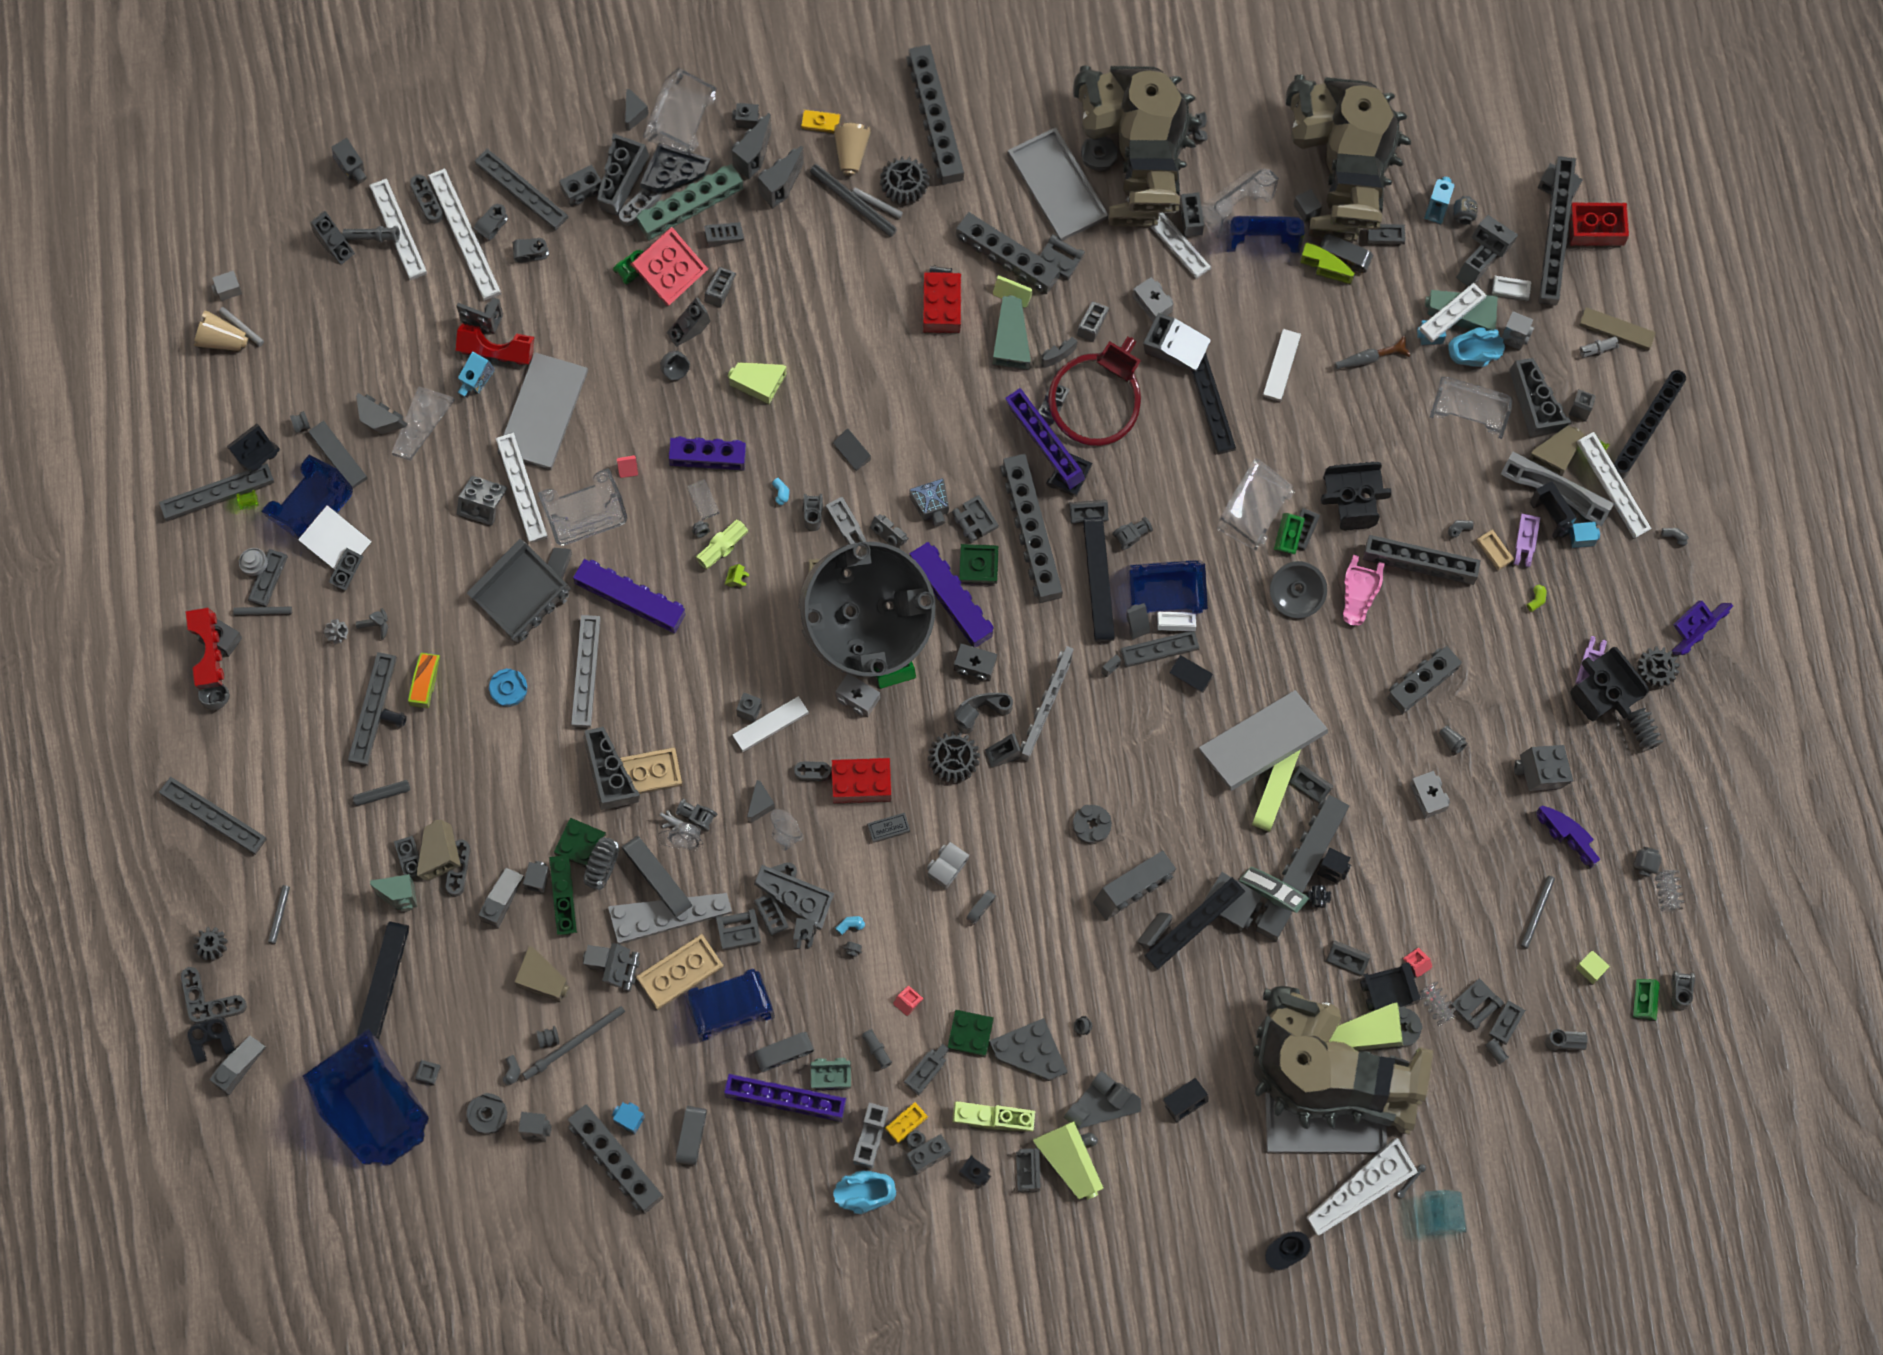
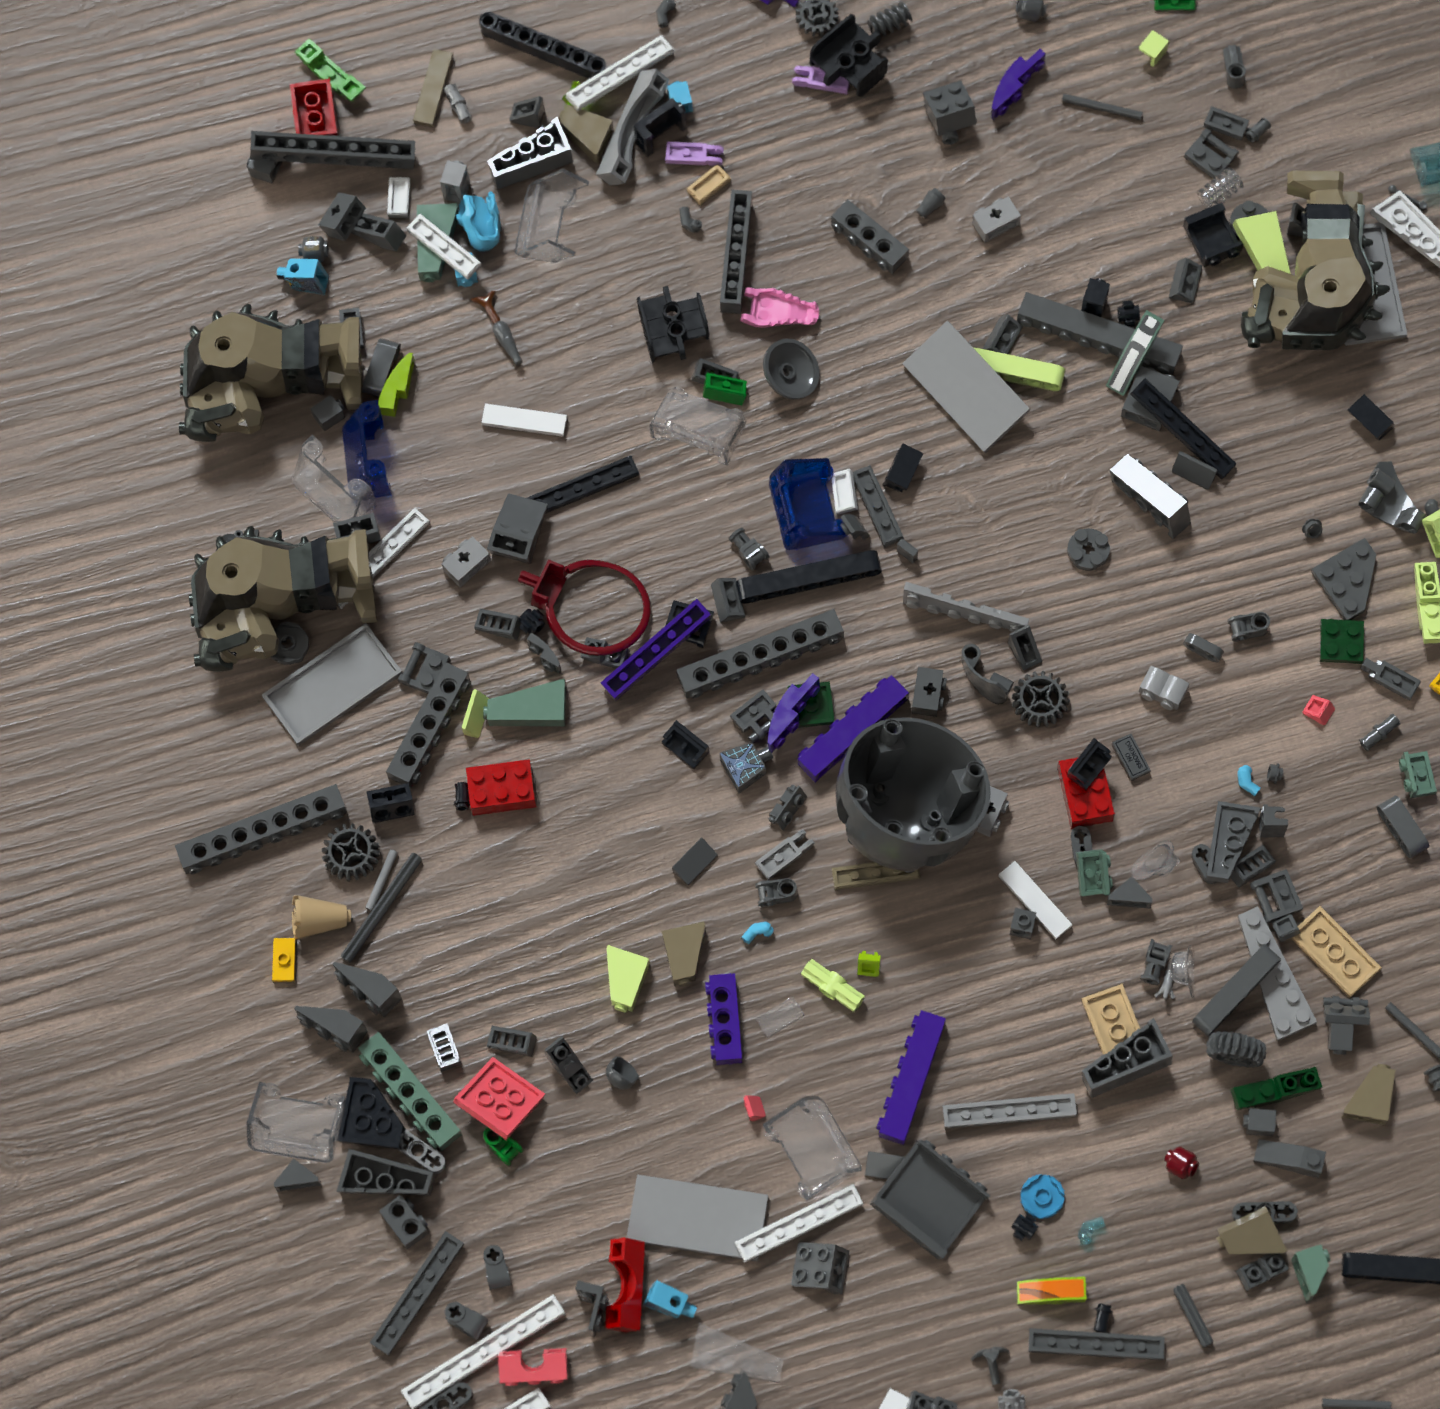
camera: 90 degrees left, 0 degrees up
(442, 252) = (514, 1370): none -> coral arch
(473, 719) = (1087, 1228): none -> clear light blue arm
(482, 666) = (1024, 1227): none -> black gear
(513, 804) = (1181, 1162): none -> dark red head
(578, 841) = (1210, 1084): dark green plate -> none
(700, 529) = (817, 1012): dark grey plate -> none
(707, 931) = (1286, 927): none -> dark grey tile
(729, 1004) = (1367, 889): clear blue windscreen -> none
(746, 115) = (289, 1044): dark grey brick -> none
(771, 429) = (684, 951): none -> dark tan slope
(784, 772) = (1093, 872): none -> sand green bracket
(878, 778) = (1089, 764): none -> black hinge
(940, 213) = (390, 803): none -> black brick
(958, 456) = (685, 744): none -> black hinge
(966, 534) = (785, 717): none -> dark purple slope
(996, 948) = (1247, 626): none -> dark grey piece
(1089, 344) = (531, 621): none -> black gear
(1419, 962) = (1176, 214): coral slope -> none
(1540, 598) = (759, 135): lime arm -> none
(1642, 243) = (324, 68): none -> bright green slope

